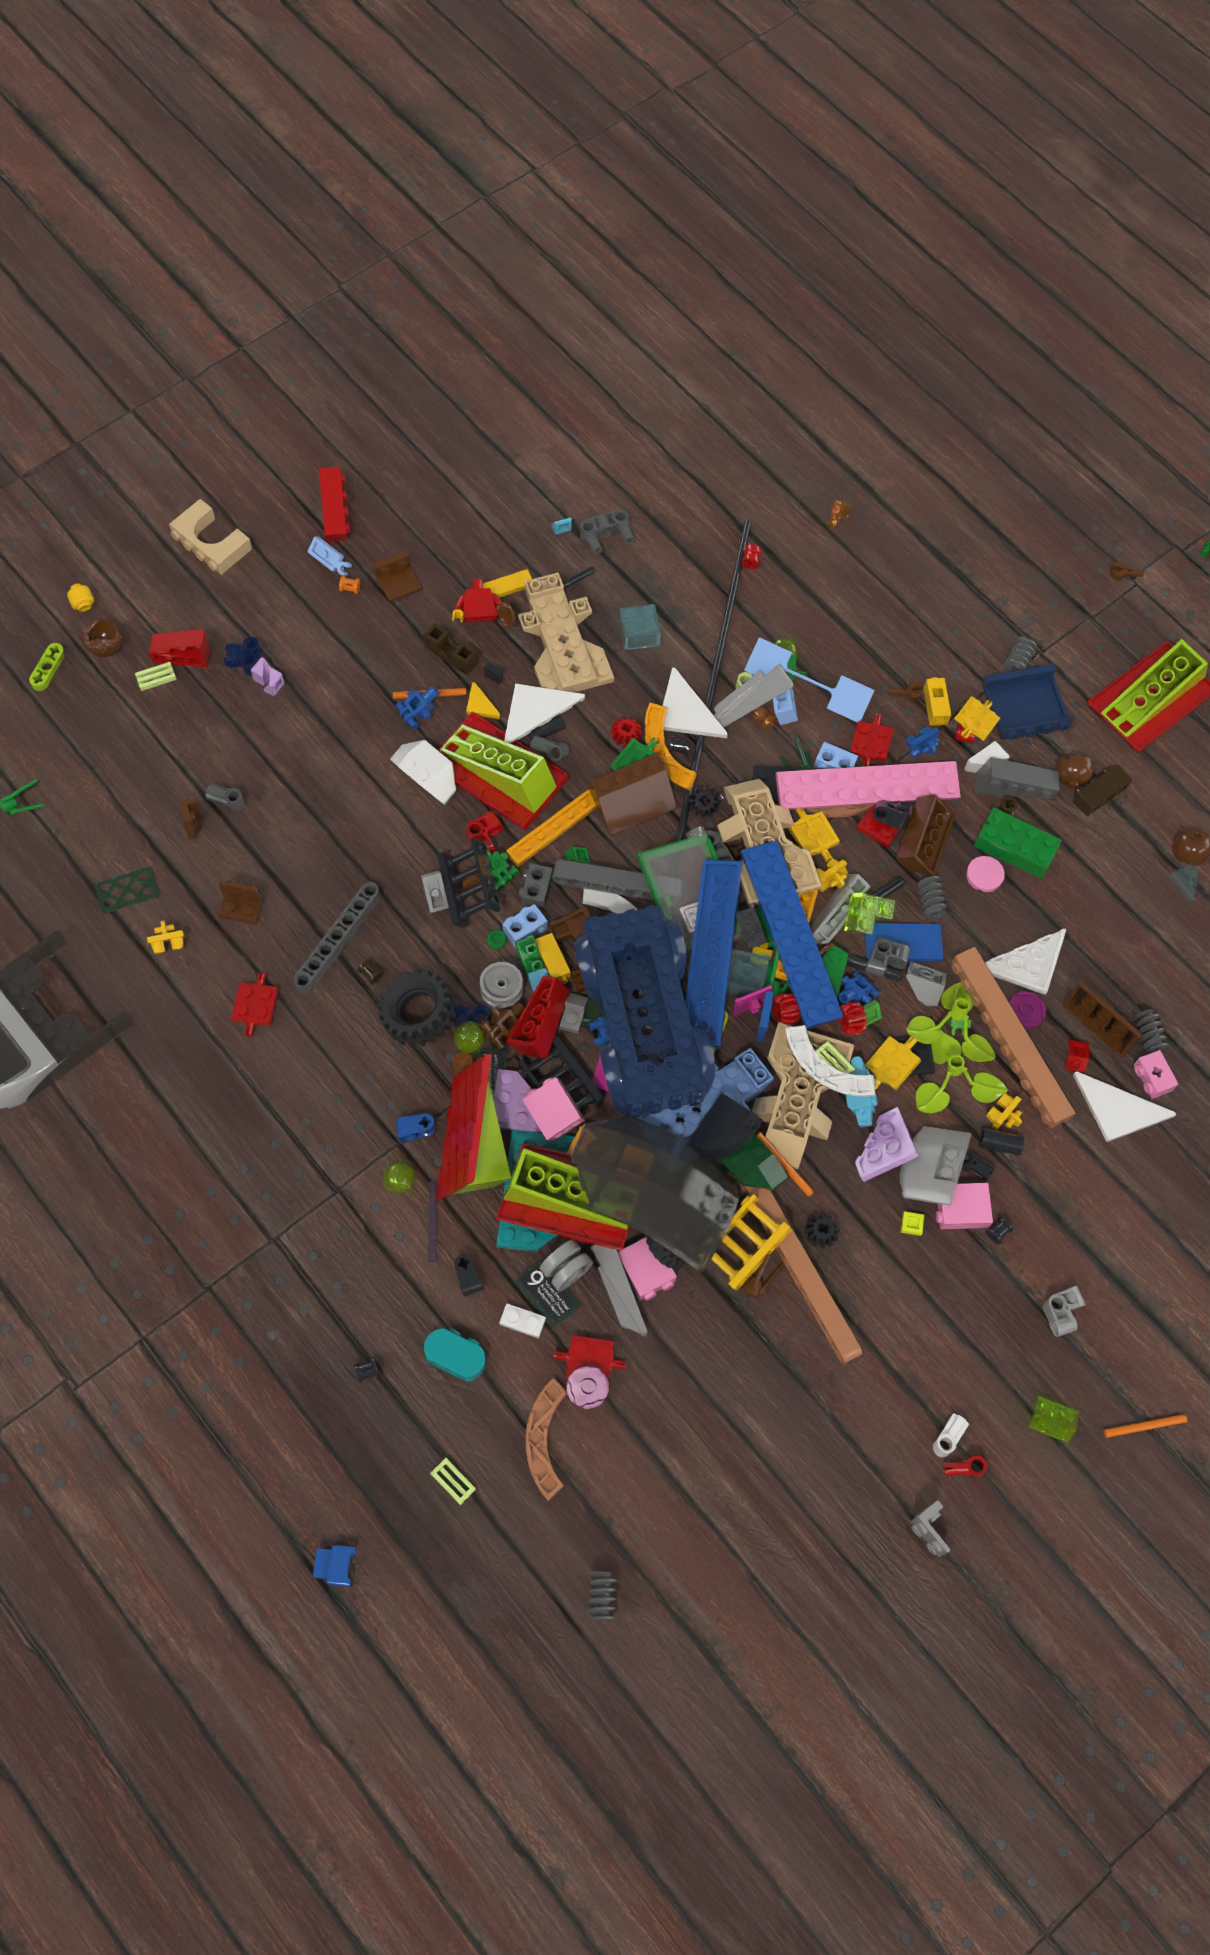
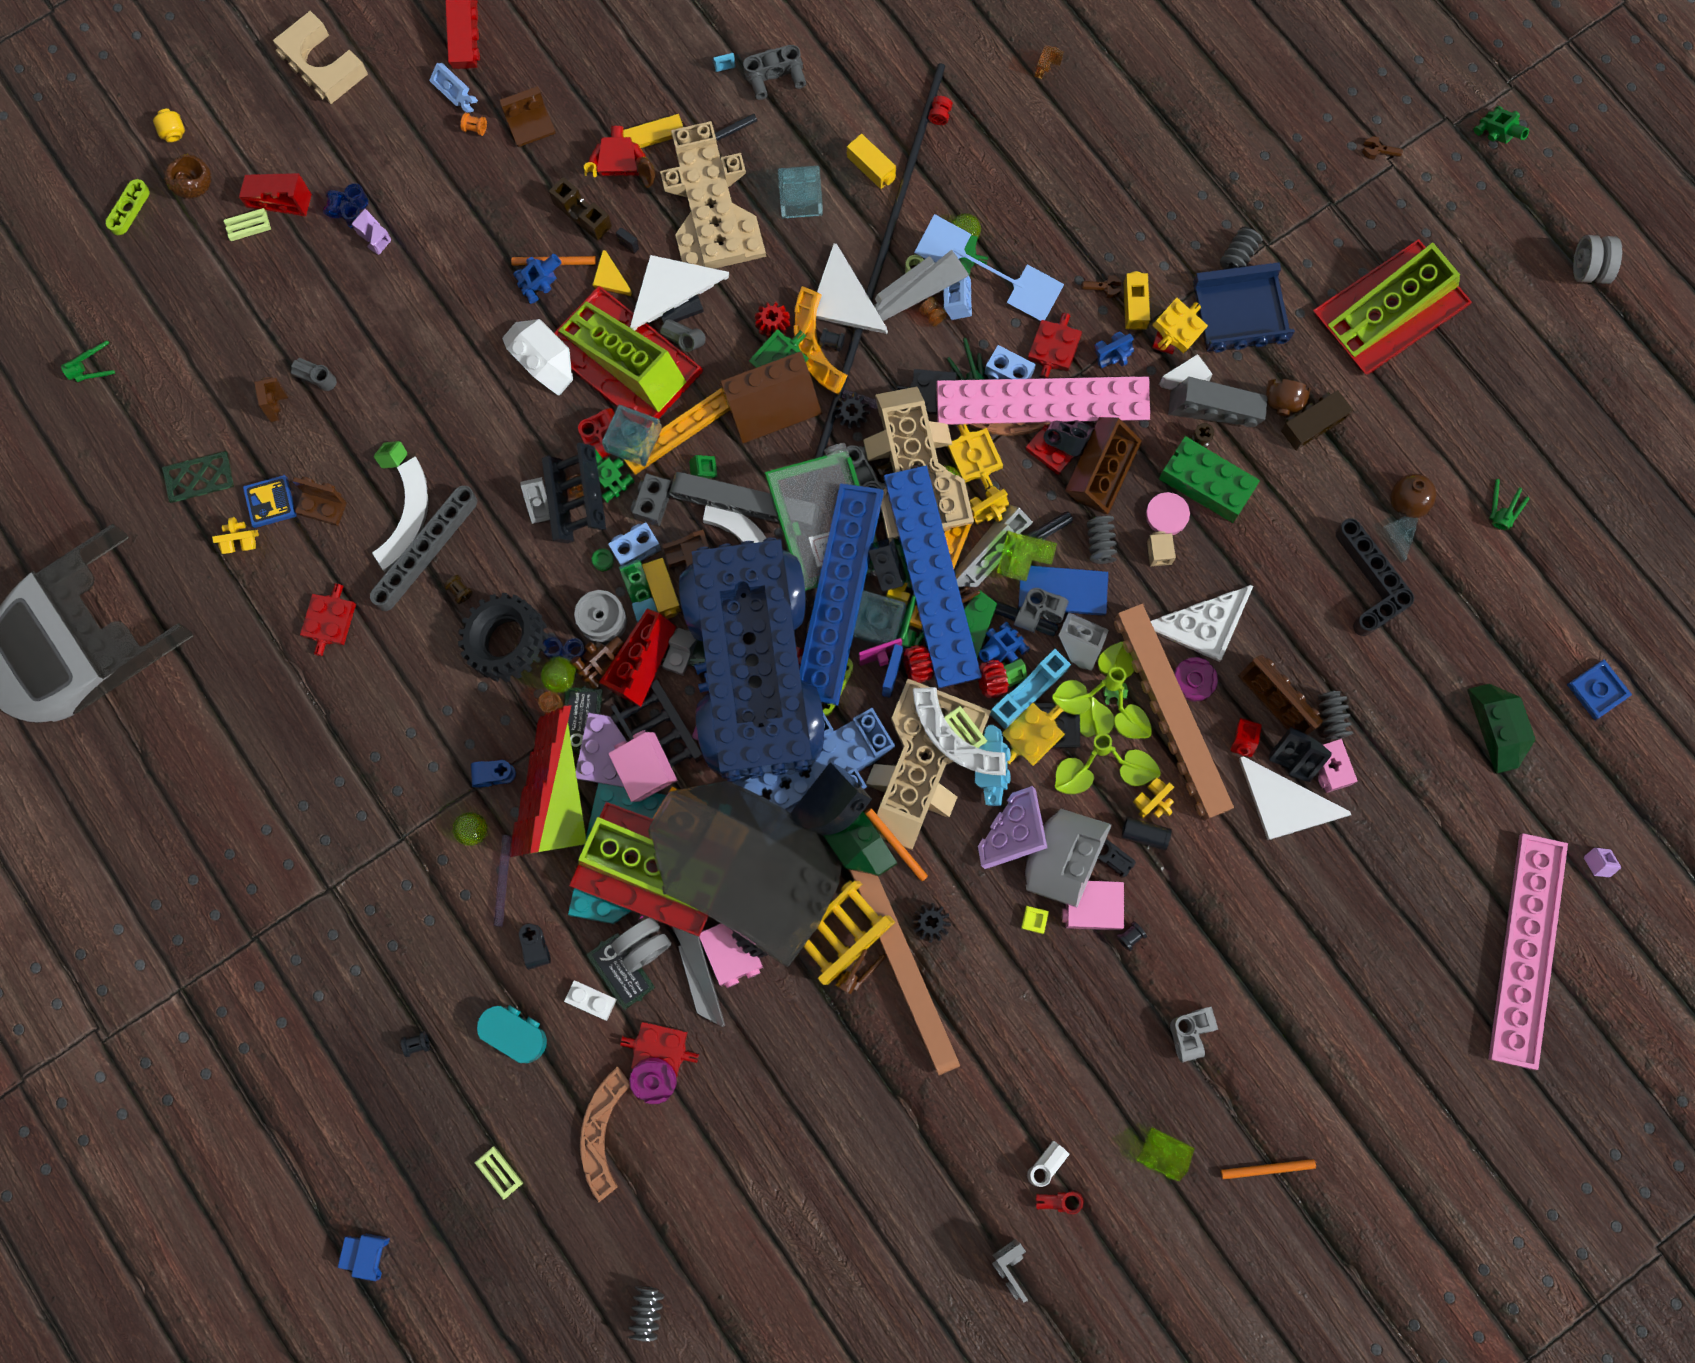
camera: 10 degrees right, 10 degrees up
(193, 906) = (269, 501): none -> tile
(299, 861) = (390, 454): none -> bright green slope
(323, 914) = (412, 518): none -> white tile
(515, 831) = (631, 435): none -> clear light blue brick
(697, 600) = (871, 161): none -> yellow brick
(888, 1023) = (1030, 689): none -> medium azure arch
(983, 902) = (1161, 549): none -> tan brick
(1126, 1065) = (1300, 754): none -> black slope
(1169, 915) = (1375, 577): none -> black beam

